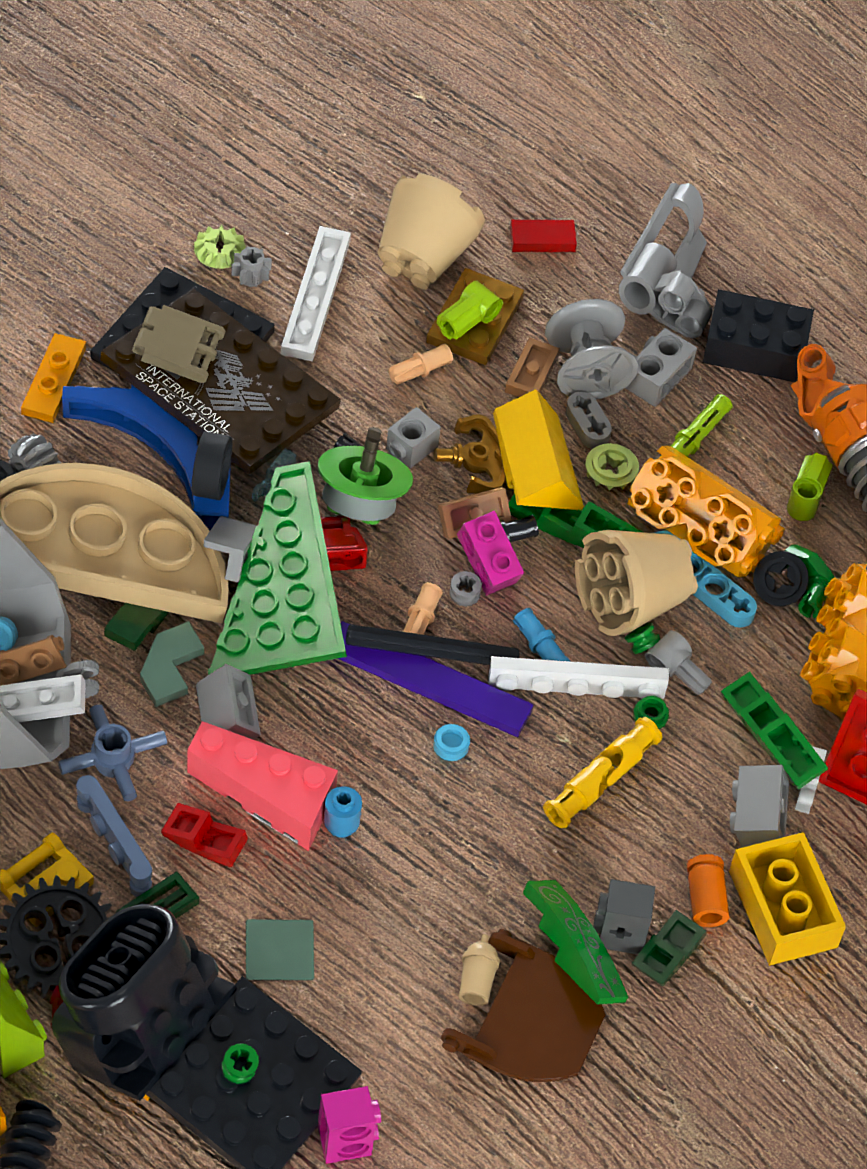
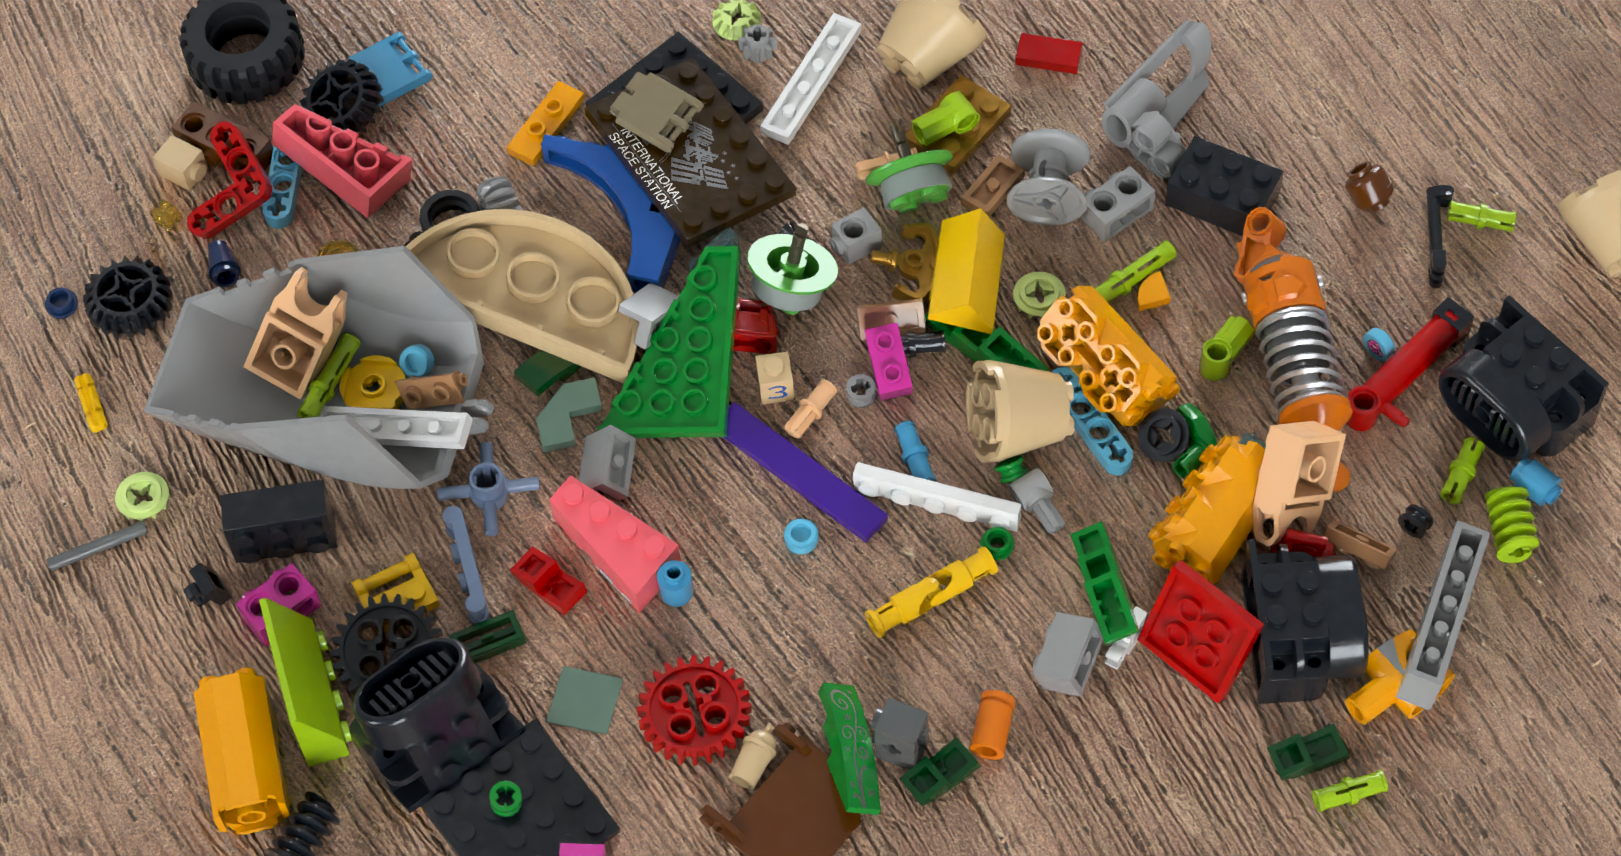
camera: 25 degrees right, 5 degrees up
(211, 465) = (648, 234): black tyre -> none
(372, 949) = (725, 701): none -> red gear
(377, 589) = (774, 378): none -> tan brick
(426, 645) = (805, 440): black axle -> none
(456, 371) = (912, 177): none -> piece
(594, 417) = (1038, 244): light grey beam -> none
(721, 446) = (1153, 292): none -> light orange tile
(786, 898) = (1062, 747): yellow brick -> none

